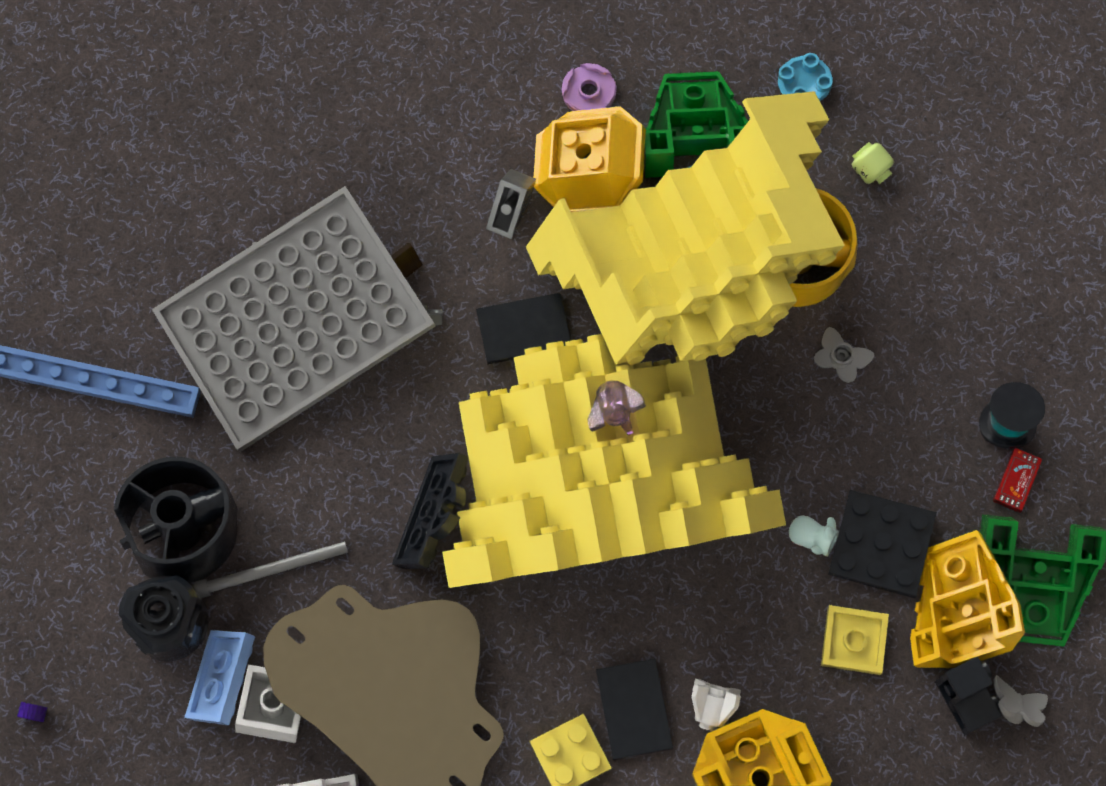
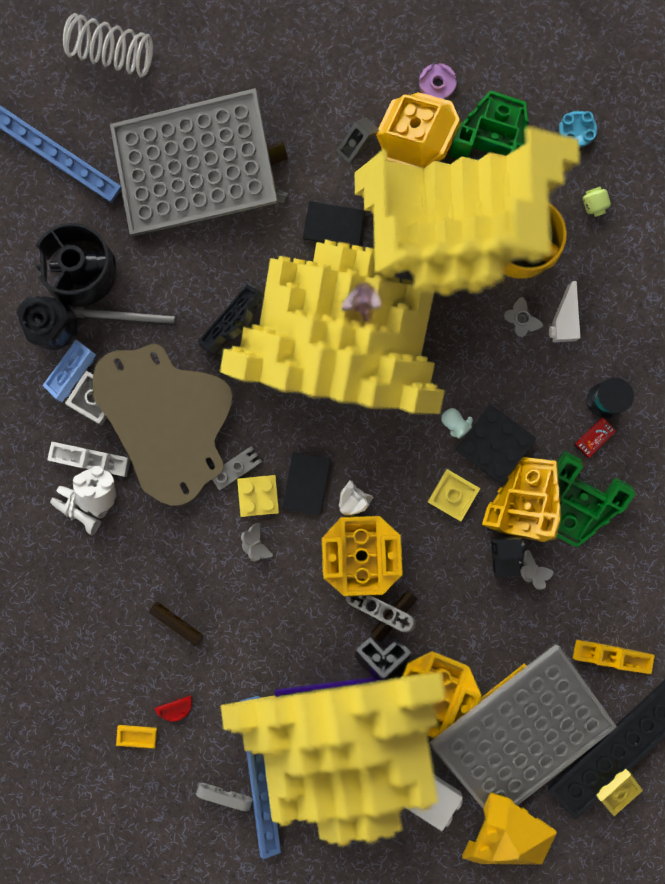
camera: 25 degrees right, 15 degrees up
(59, 223) = (137, 50): none -> white piece
(521, 727) = (236, 468): none -> light grey hinge
(903, 334) = (566, 321): none -> white slope

